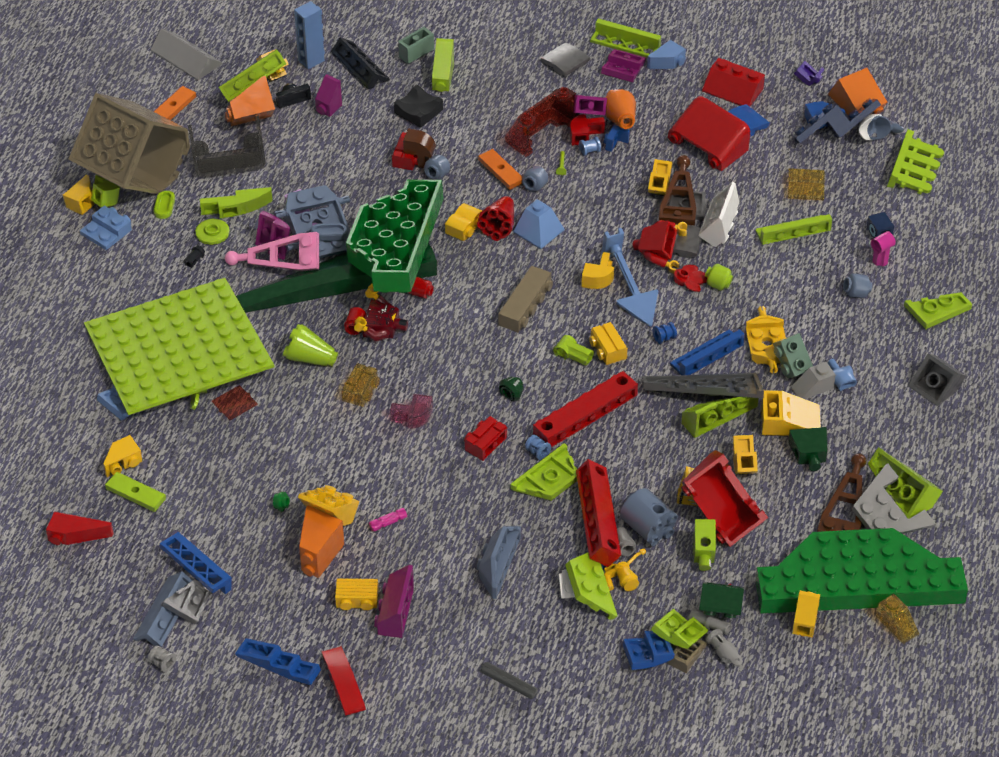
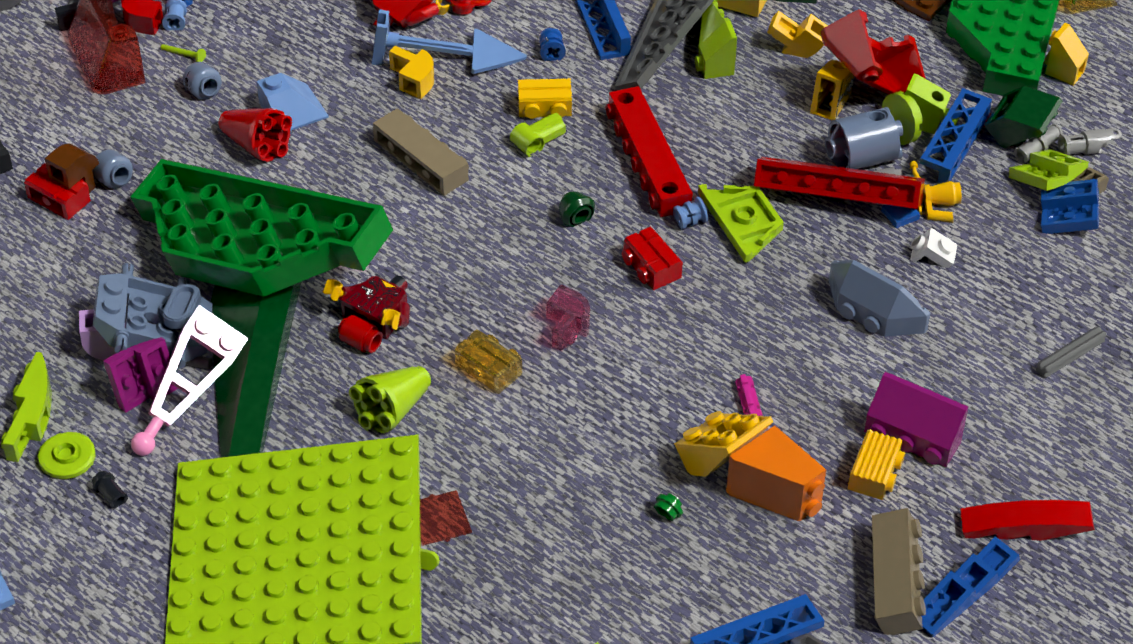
camera: 70 degrees left, 0 degrees up
(271, 620) = (897, 572): none -> dark tan brick
(463, 222) = (238, 162): yellow brick -> none
(500, 169) = (158, 109): orange tile -> none
(590, 584) = (957, 224): lime wing -> none
(682, 531) = (907, 112): none -> lime tile
(683, 573) = (964, 140): none -> blue fence

